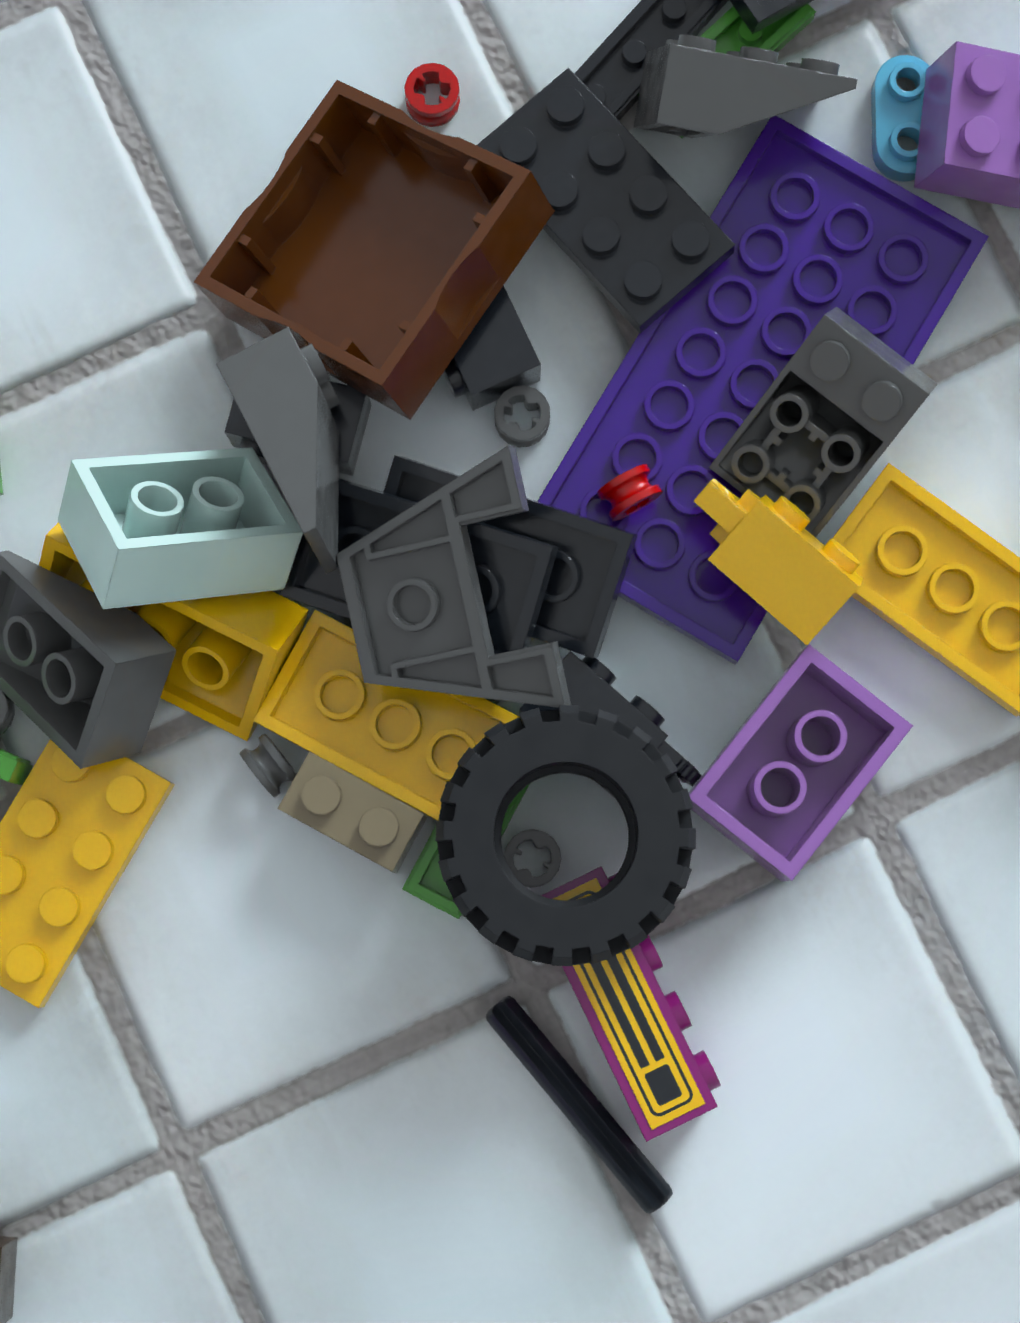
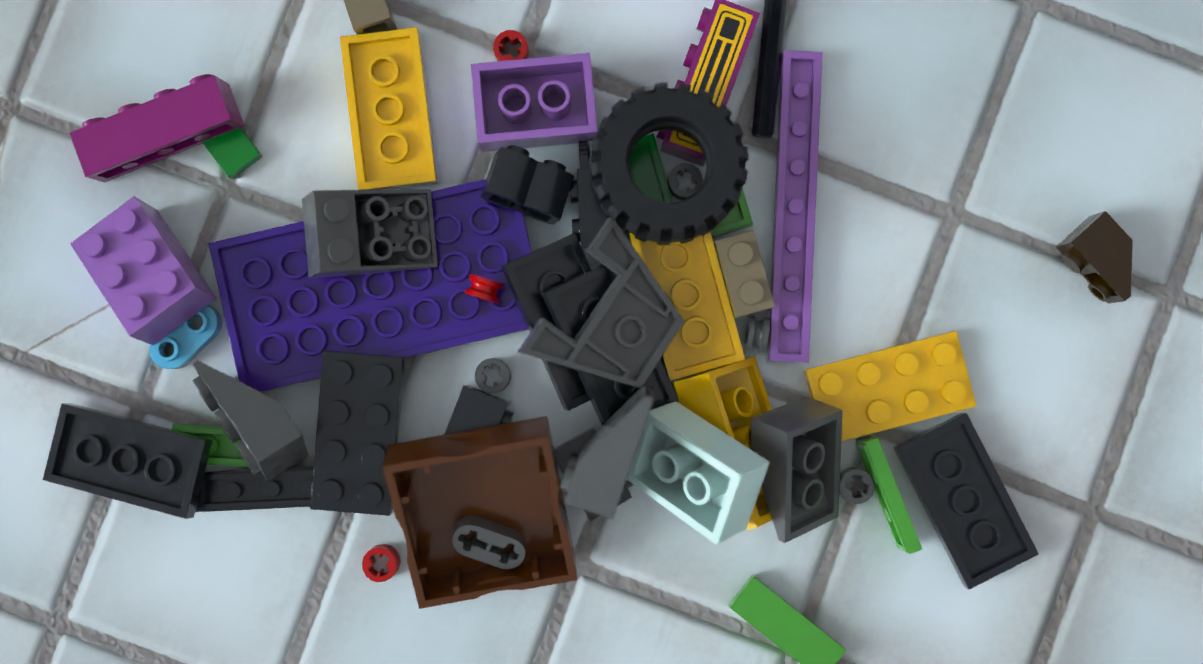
camera: 140 degrees left, 5 degrees up
(335, 227) = (489, 541): none -> dark grey beam
(376, 962) = (795, 206): none -> medium lavender plate
(577, 817) = (648, 170): none -> green tile
(704, 659) = (528, 185): none -> black brick
(778, 559) = (452, 192): yellow hinge -> none
(901, 820) = (514, 38): none -> red bush

